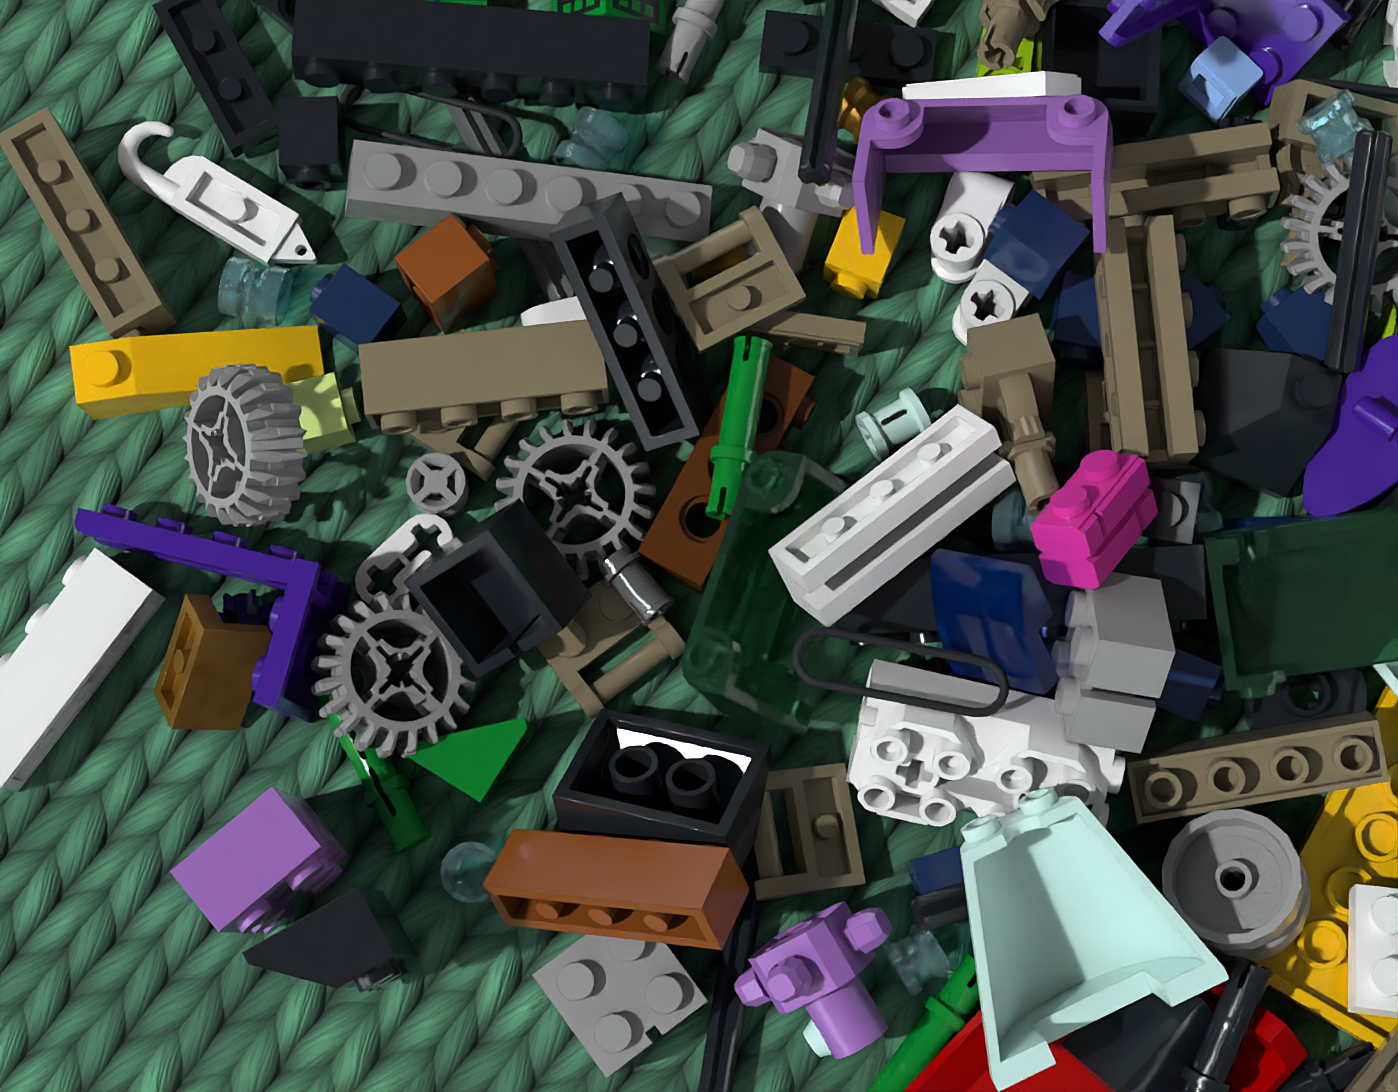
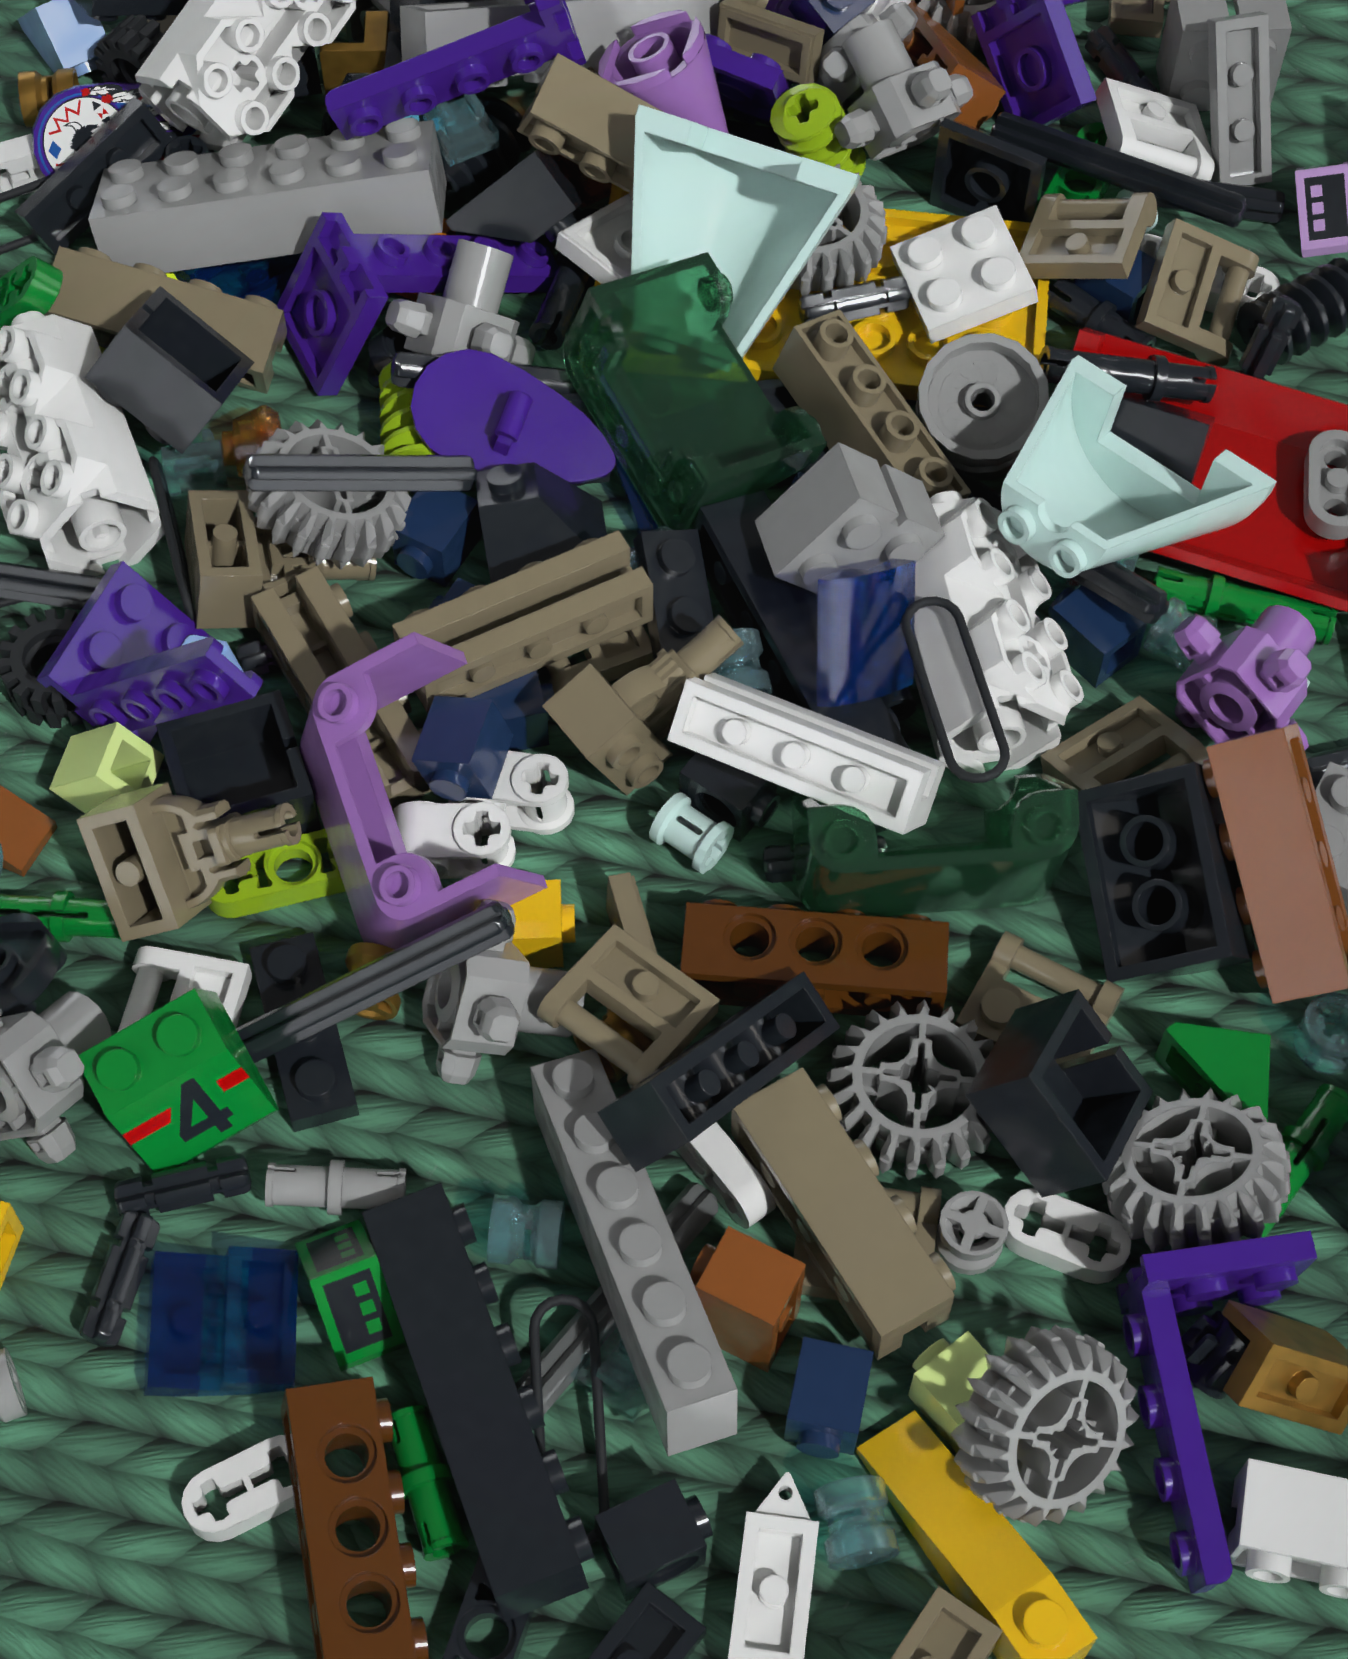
camera: 115 degrees left, 20 degrees down
(635, 585) = (979, 983): dark grey pin -> none
(739, 424) = (782, 935): green pin -> none
(1011, 85) = (320, 843): white tile -> none
(1094, 519) = (729, 580): dark pink brick -> none
(1333, 126) = (242, 527): clear light blue wheel -> none

